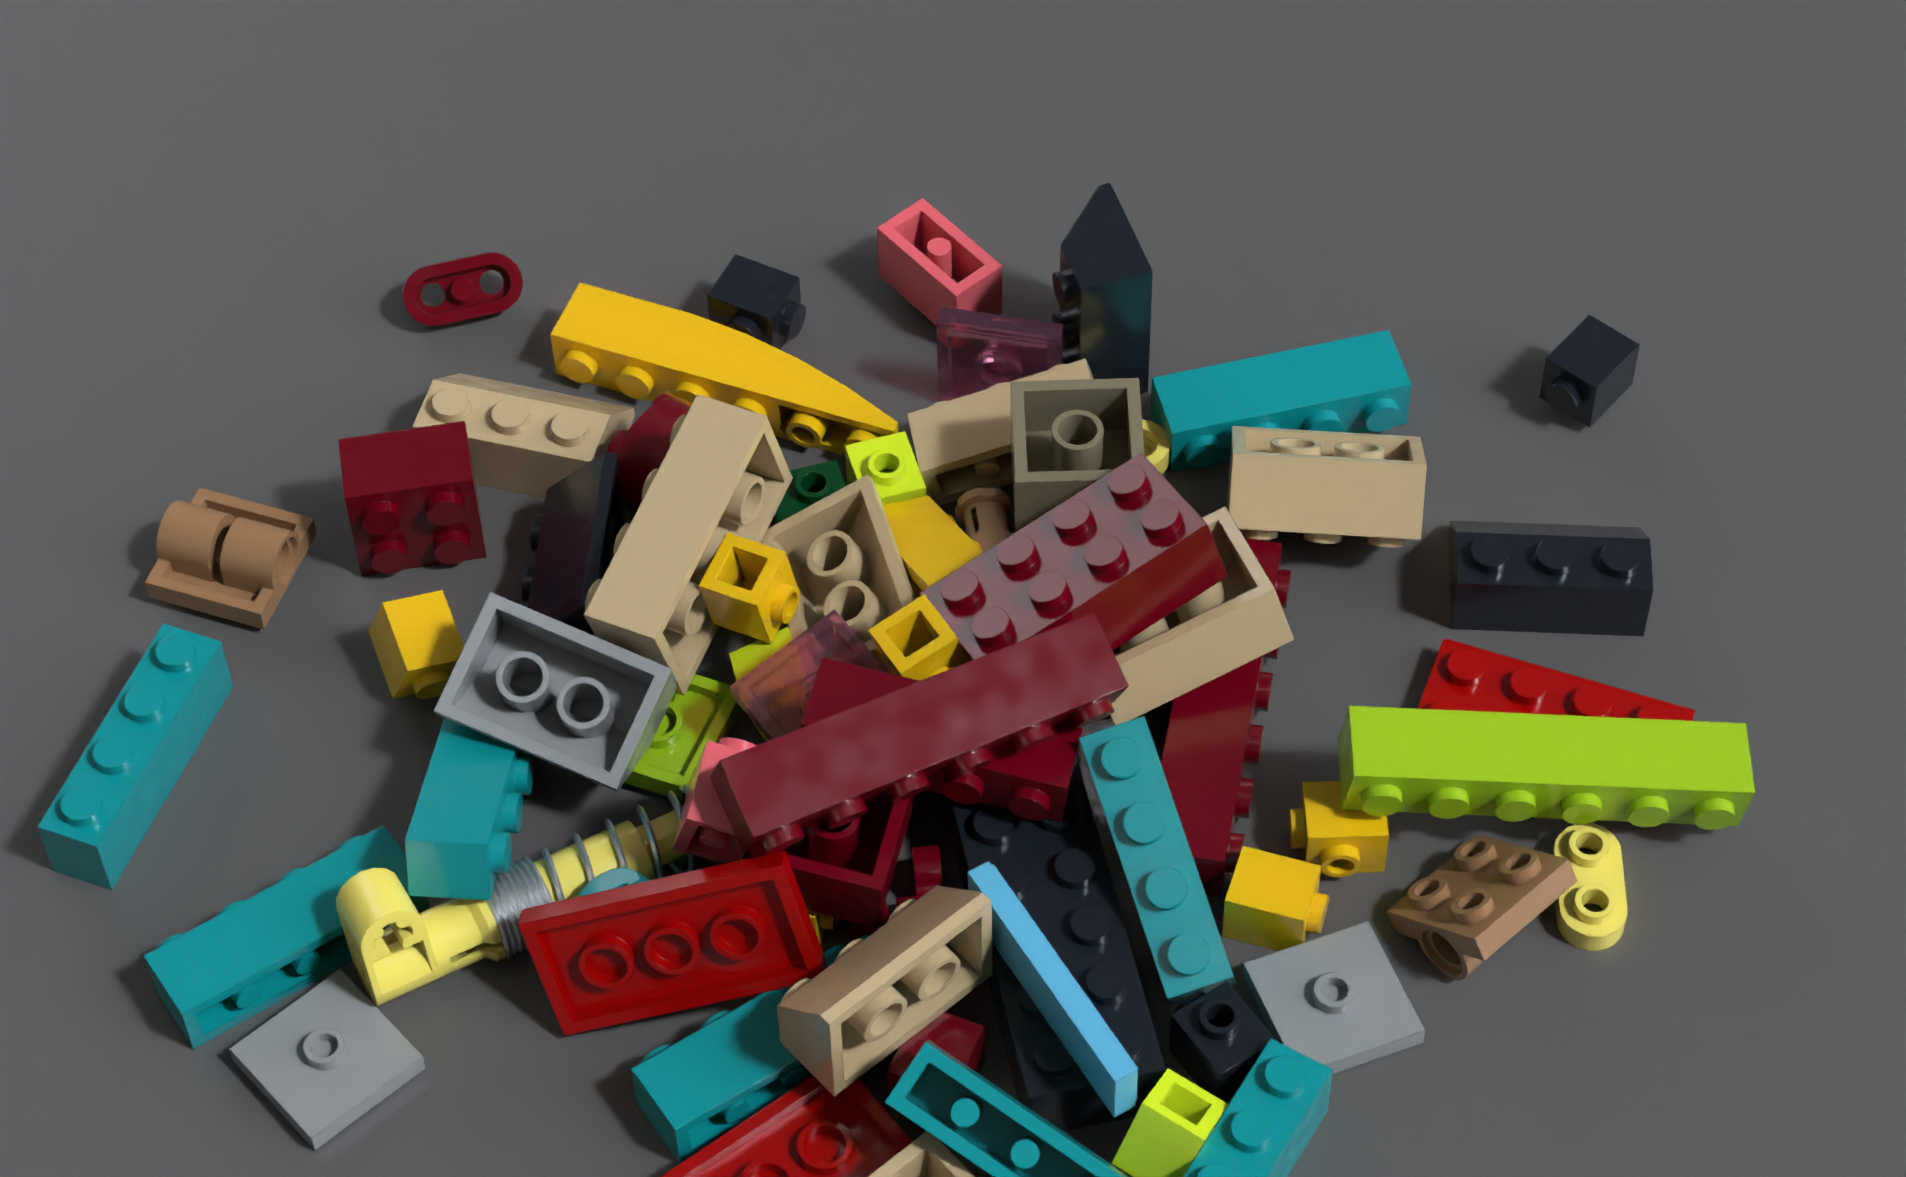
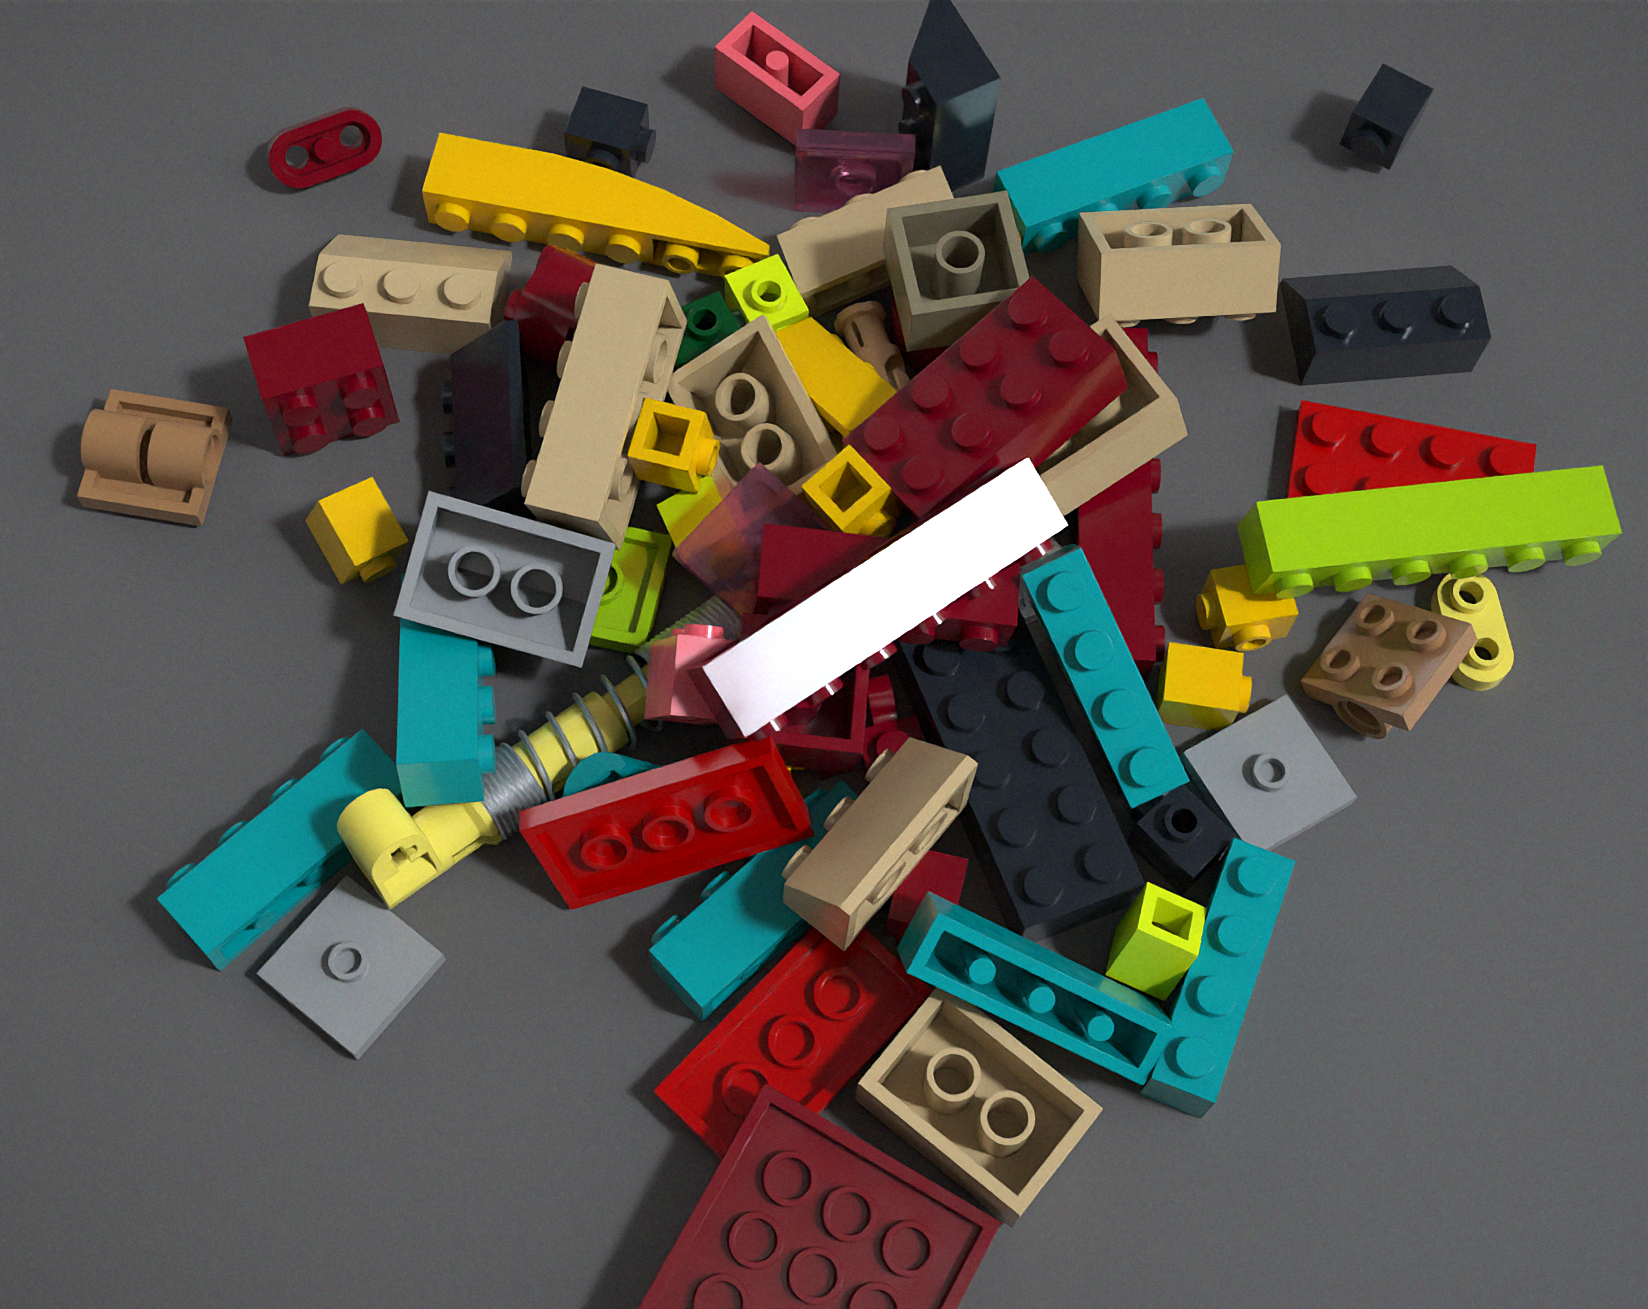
camera: 15 degrees left, 15 degrees up
(136, 757) = (105, 681): teal brick -> none
(1057, 994) = (1040, 830): medium azure tile -> none

